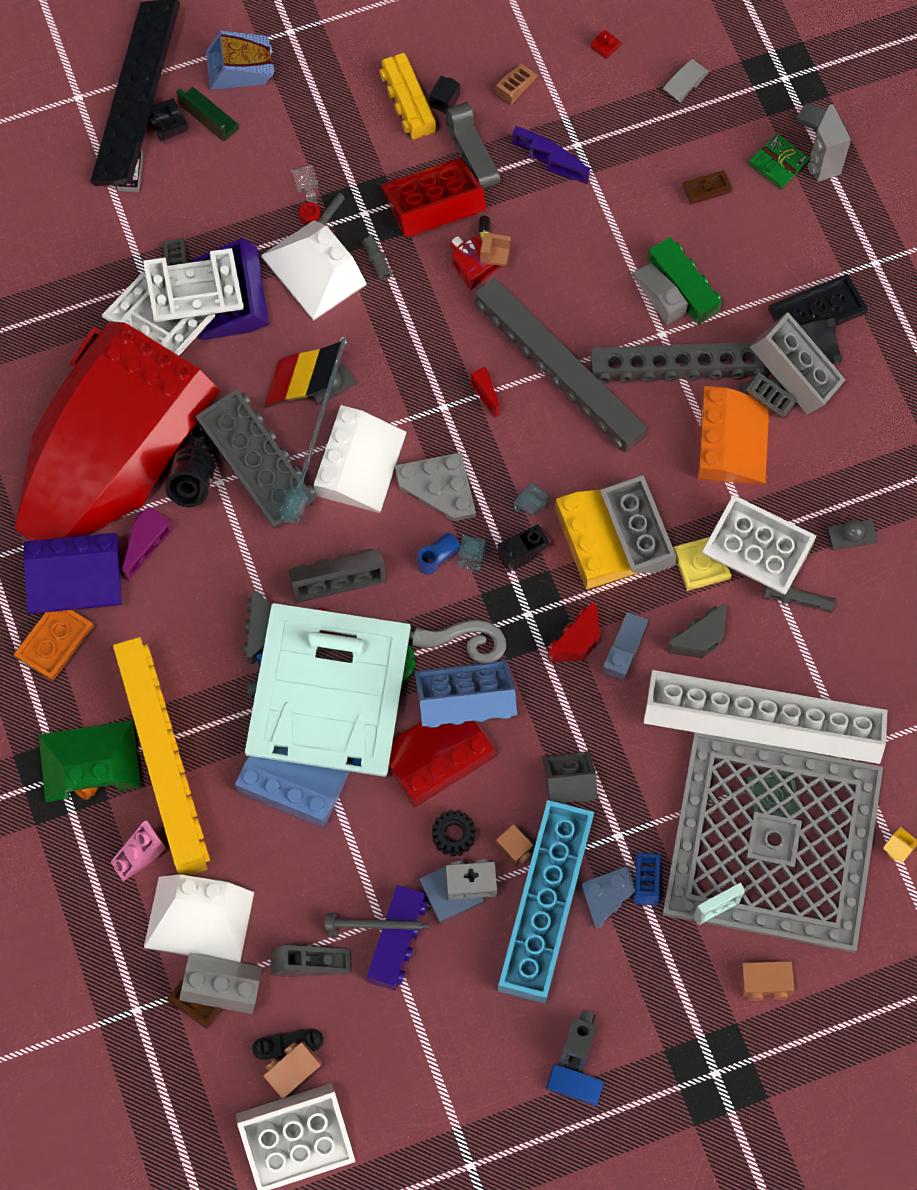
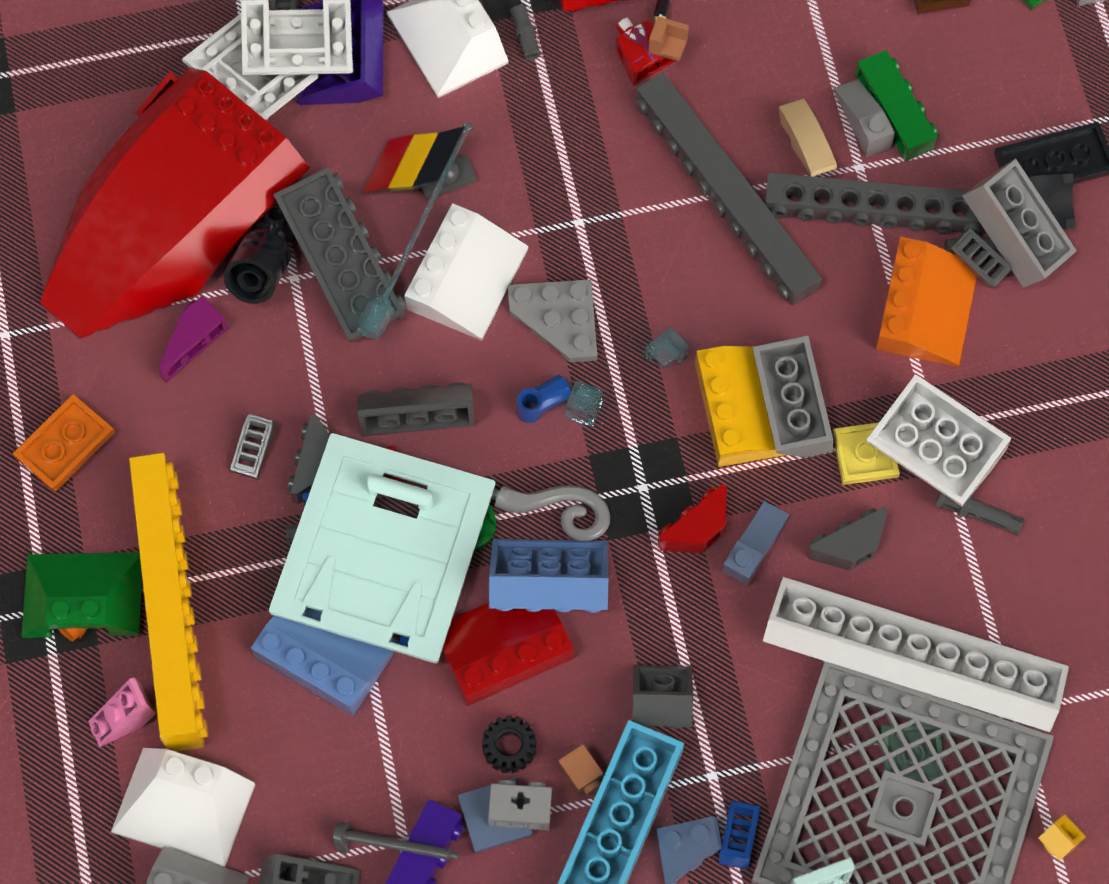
camera: 10 degrees right, 0 degrees up
(72, 573) = (98, 364): dark purple slope -> none
(210, 603) = (247, 432): none -> slope
(484, 388) = (630, 203): red slope -> none
(522, 548) = (647, 405): black slope -> none
(617, 315) = (807, 137): none -> tan slope
(852, 534) = (1057, 442): dark grey tile -> none

